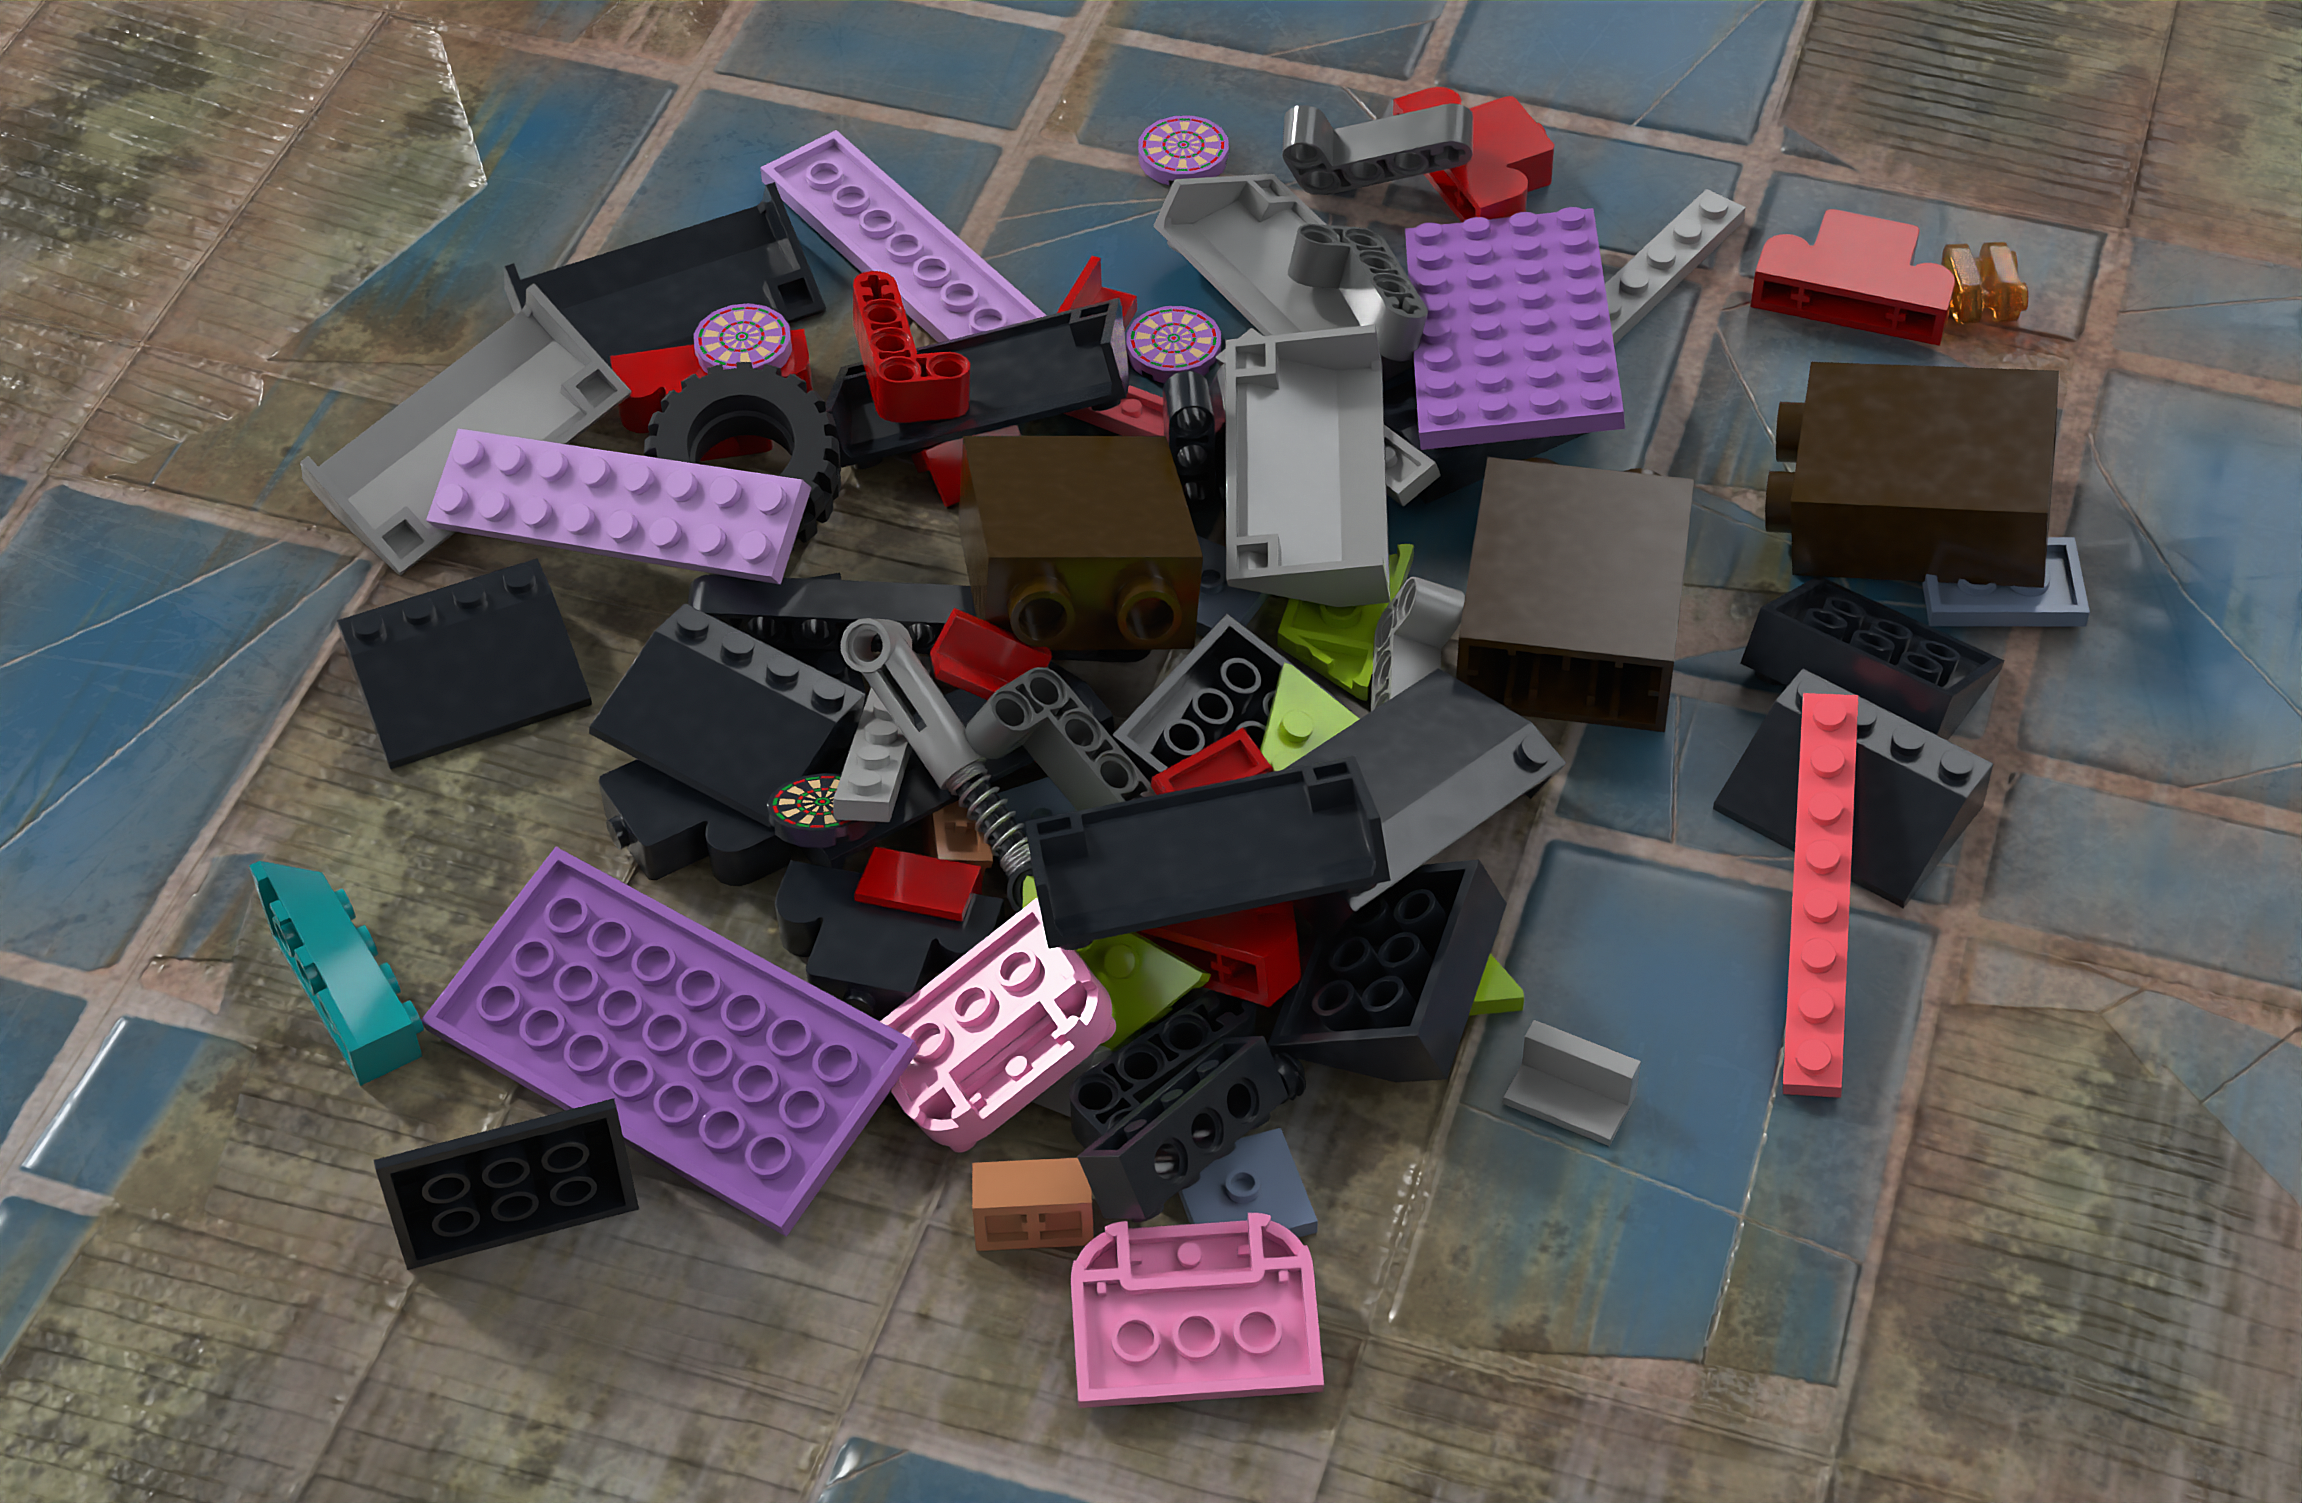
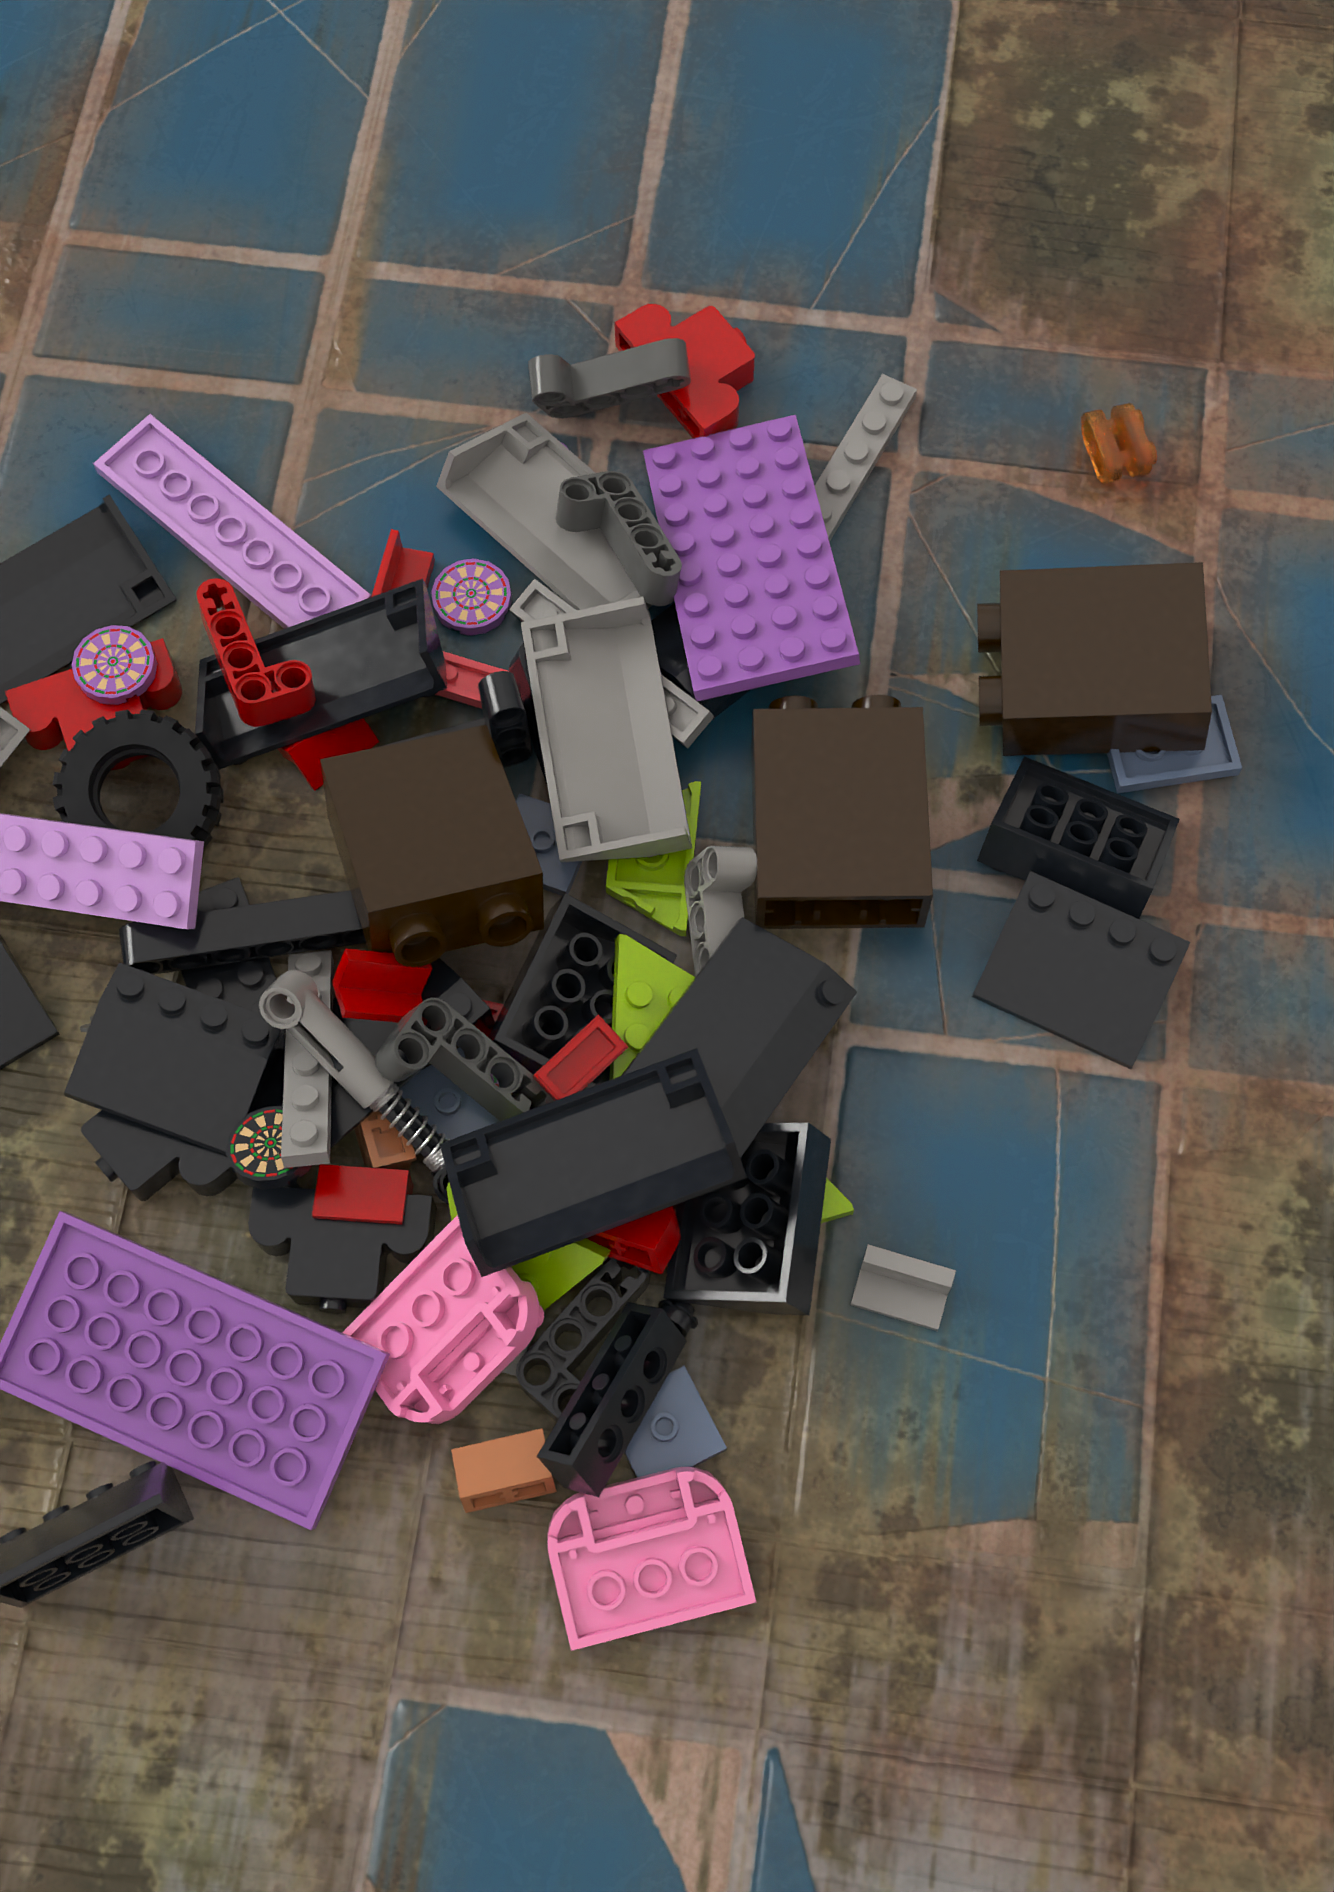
camera: 10 degrees left, 20 degrees up
(1183, 149) = (445, 390): medium lavender tile -> none
(1821, 897) = (1072, 1083): coral plate -> none
(1856, 278) = (1017, 452): brick -> none

